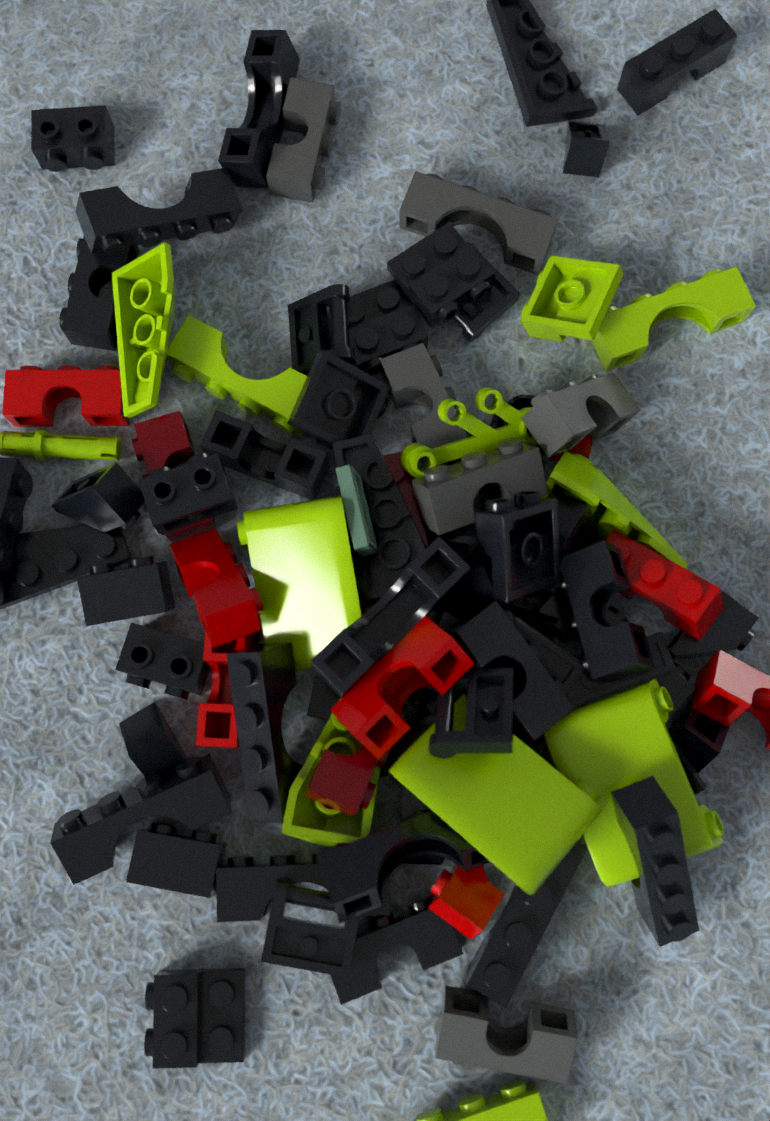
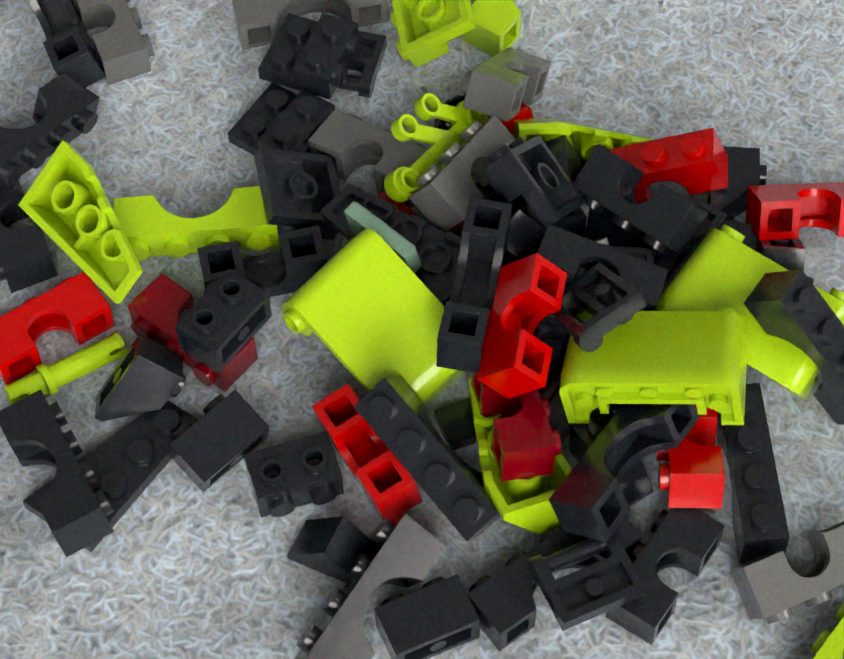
camera: 35 degrees left, 20 degrees down
(218, 587) = (319, 372): red arch -> none
(310, 327) = (223, 153): black plate -> none

